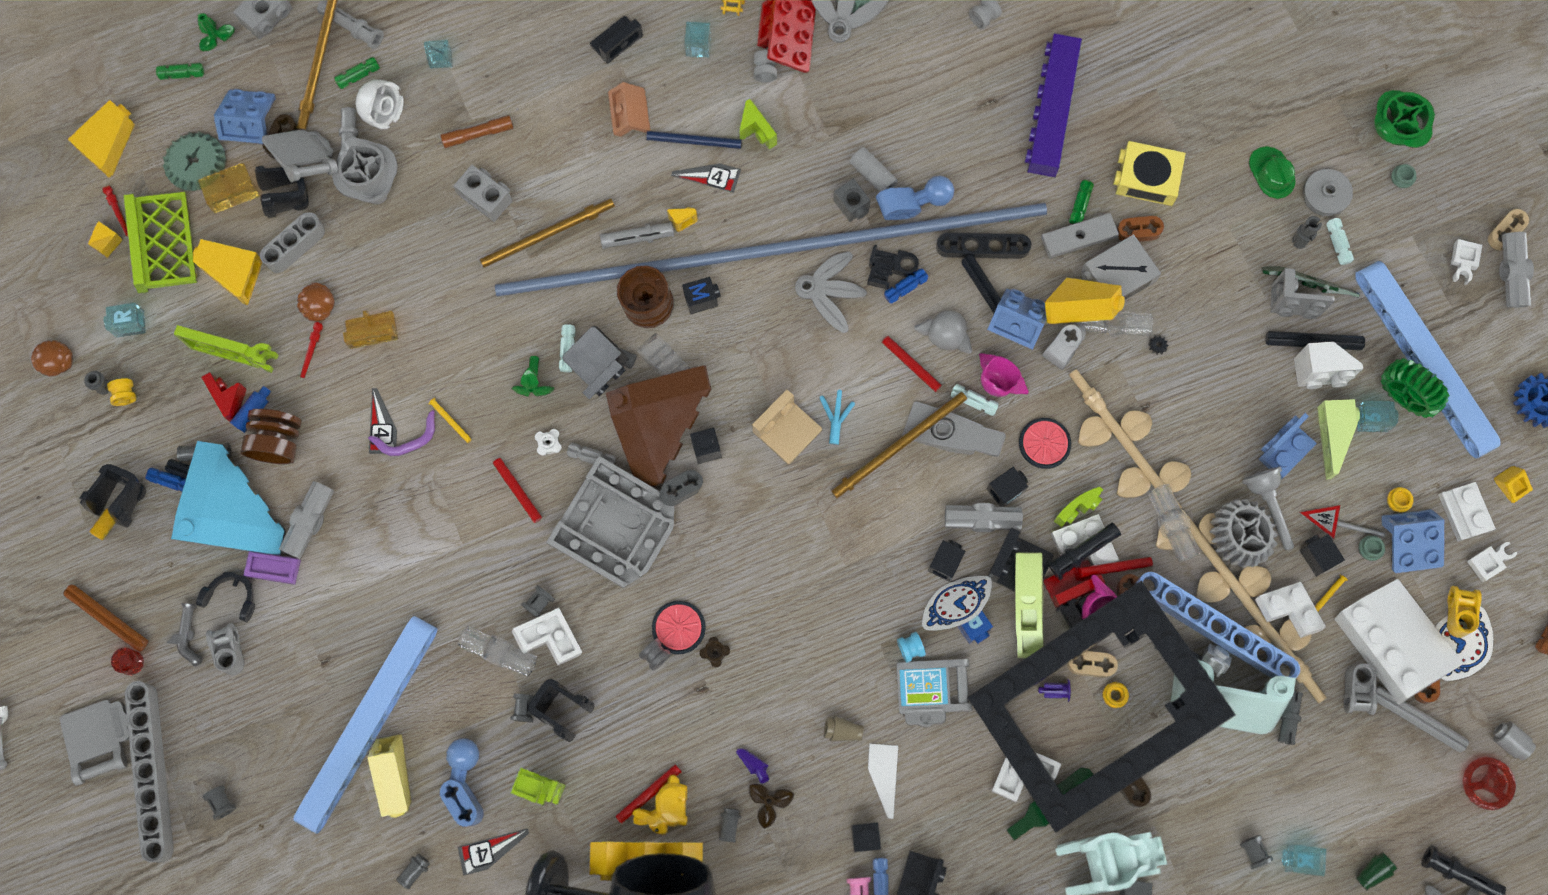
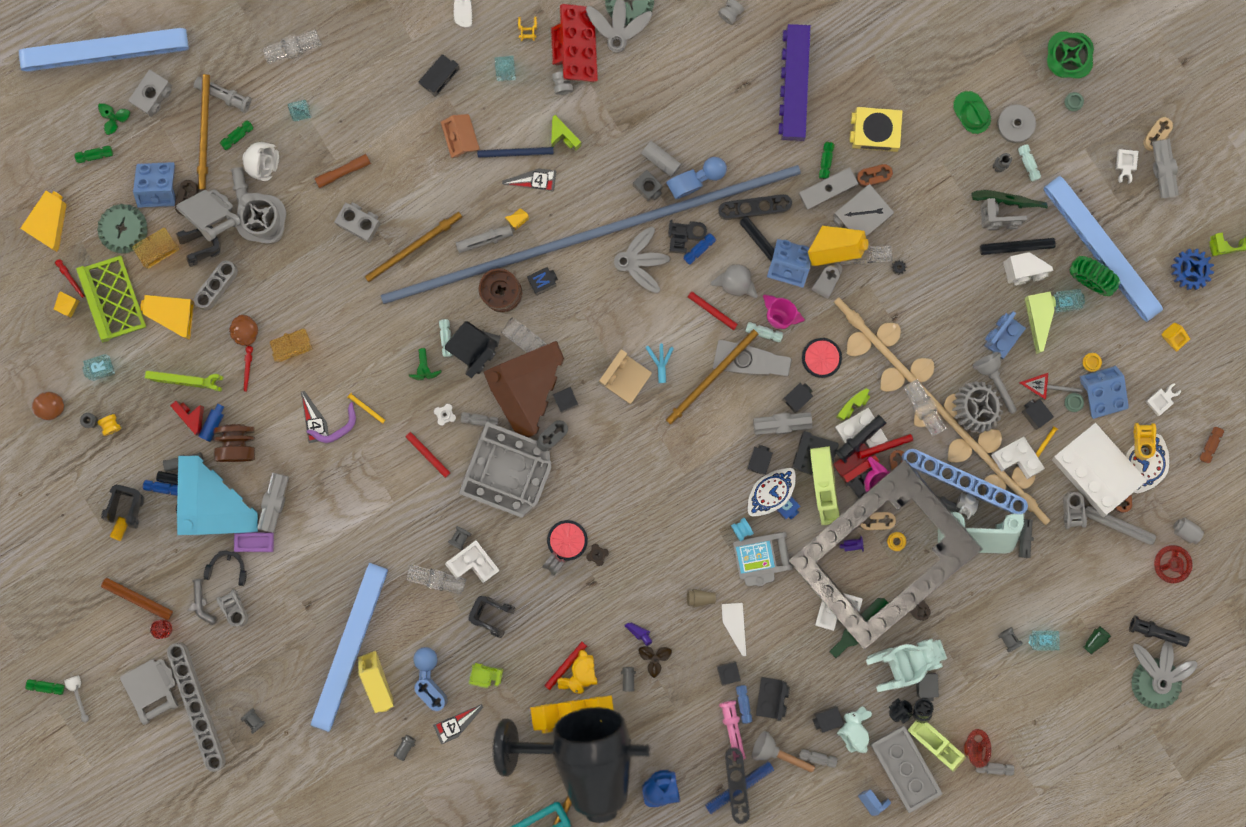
camera: 15 degrees left, 10 degrees up
(521, 710) = (462, 618): dark grey bush -> none
(1466, 511) = (1142, 363): white plate -> none

